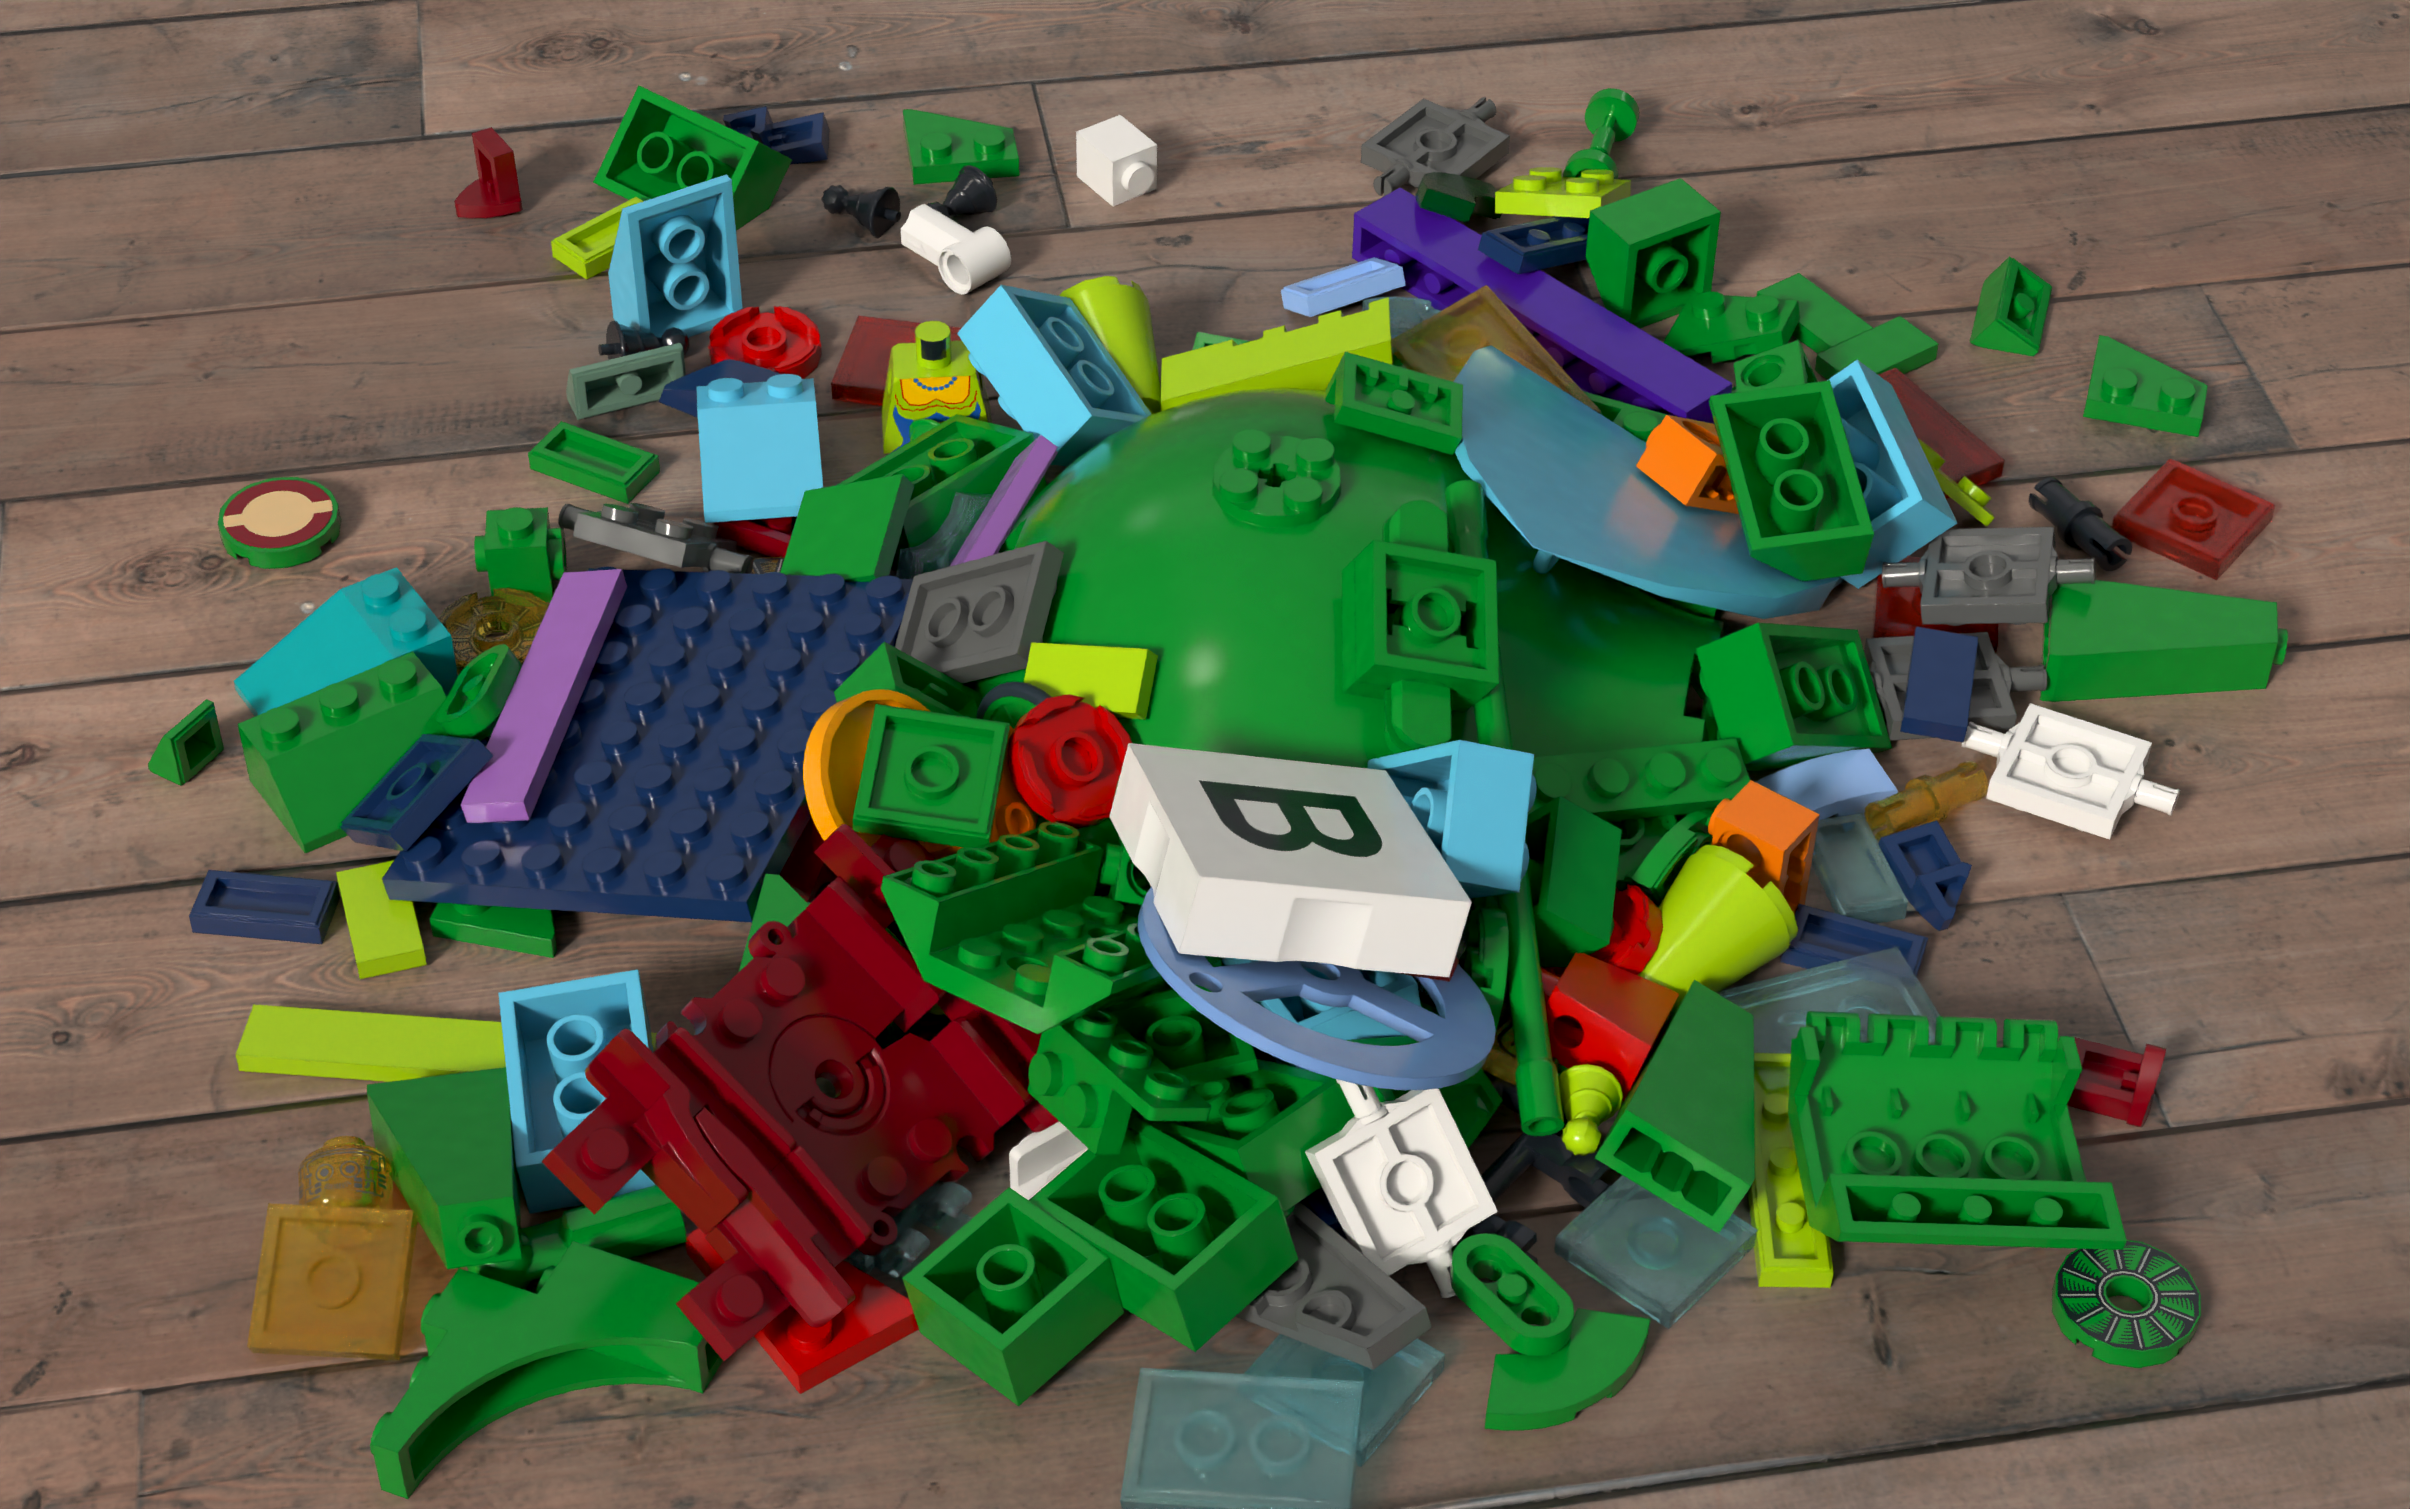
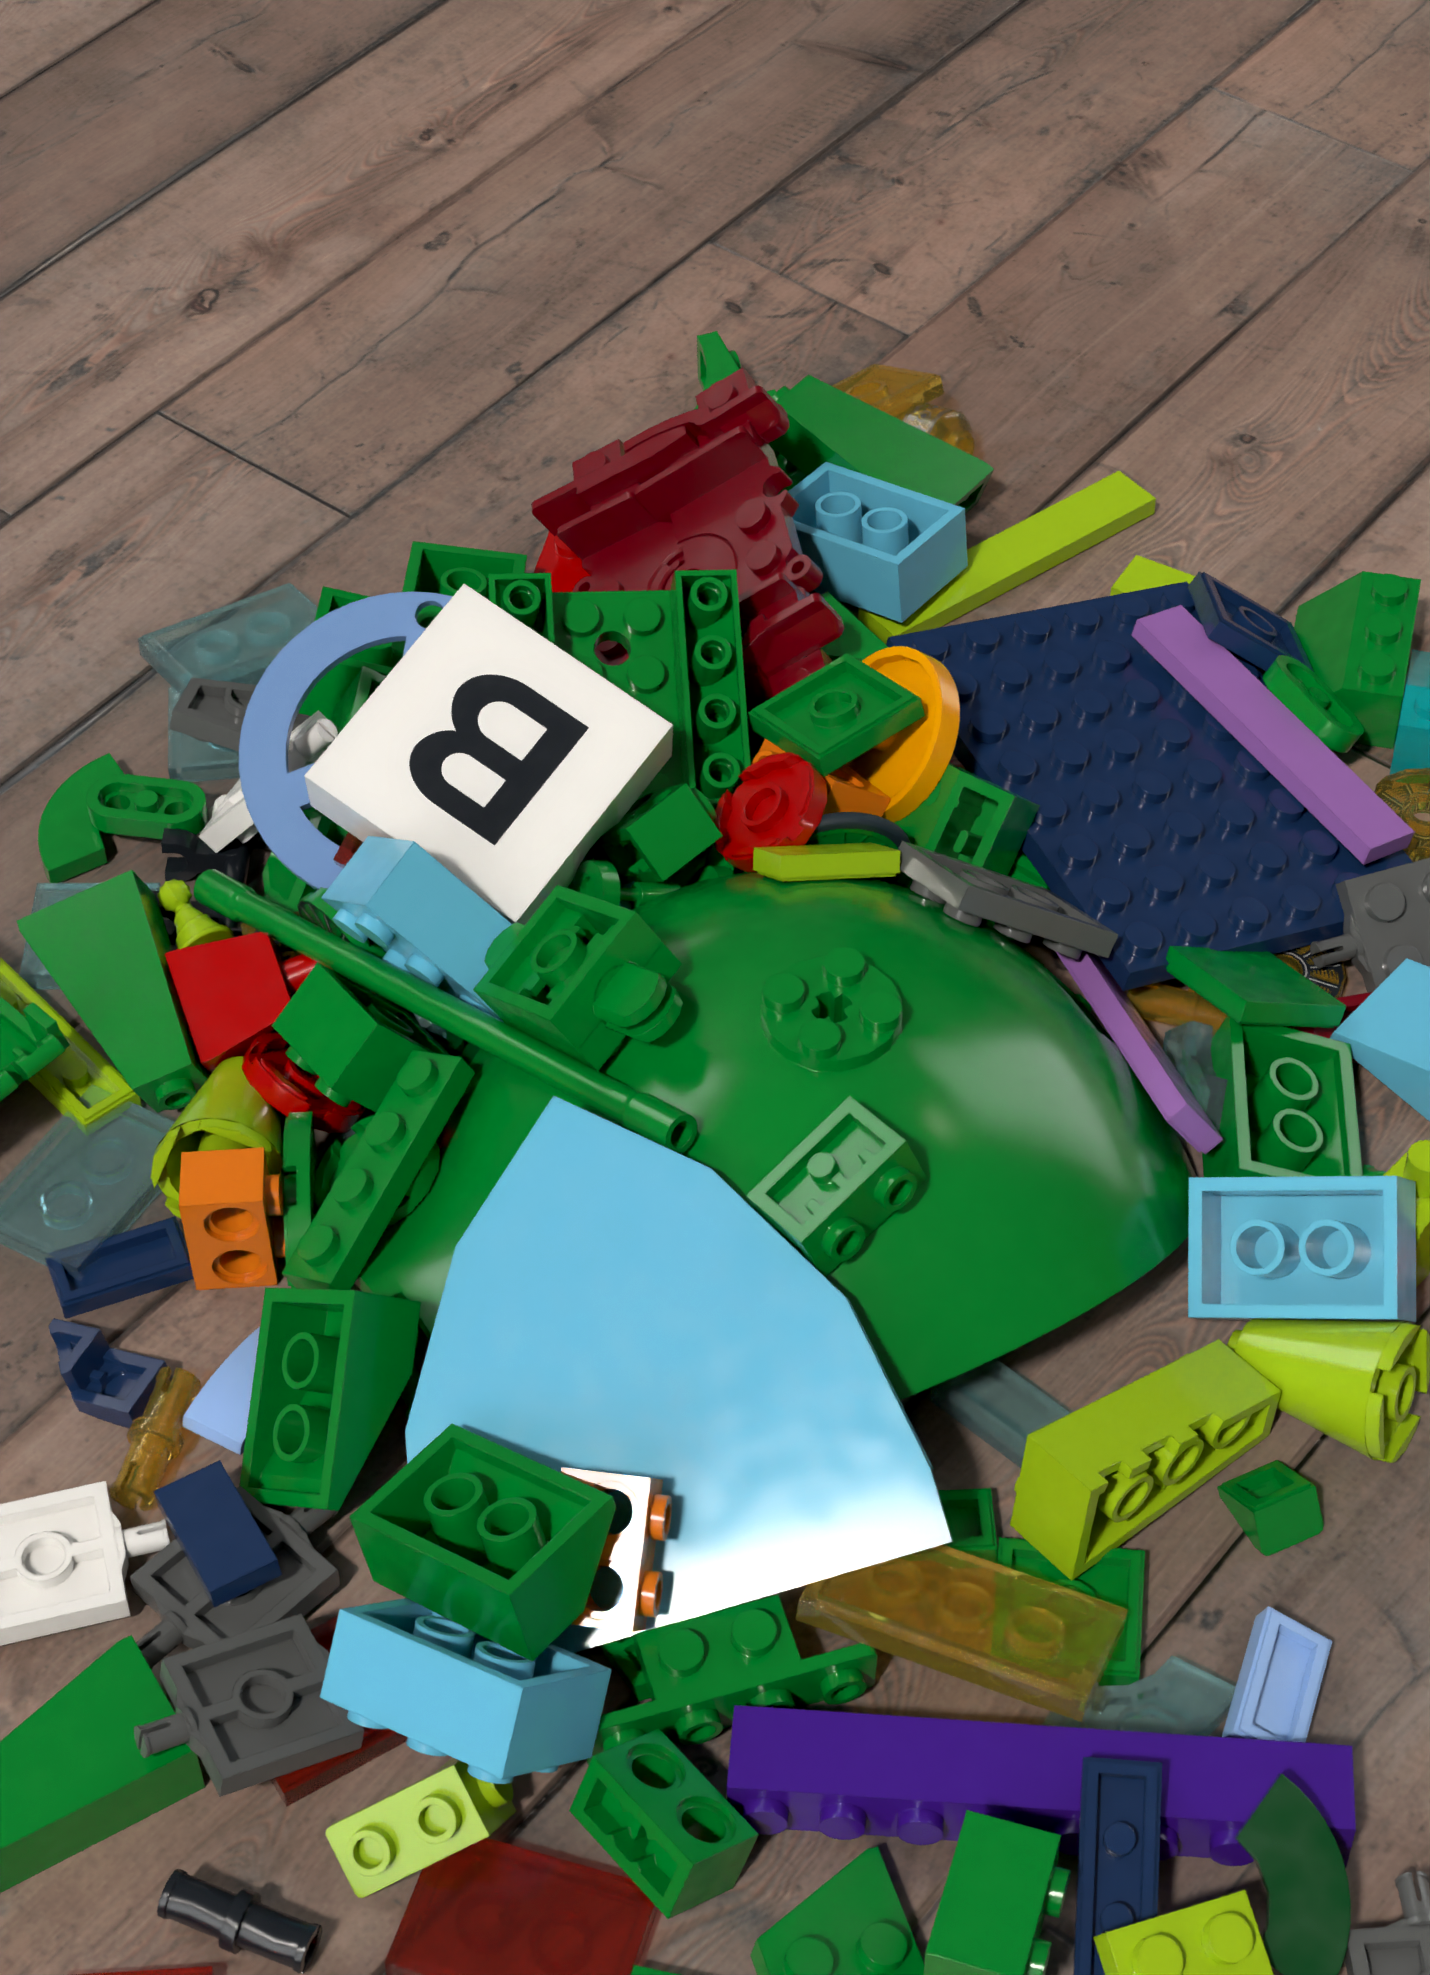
camera: 140 degrees right, 5 degrees up
(264, 907) = (1259, 558): dark blue tile -> none
(1856, 871) = (170, 1330): clear light blue tile -> none

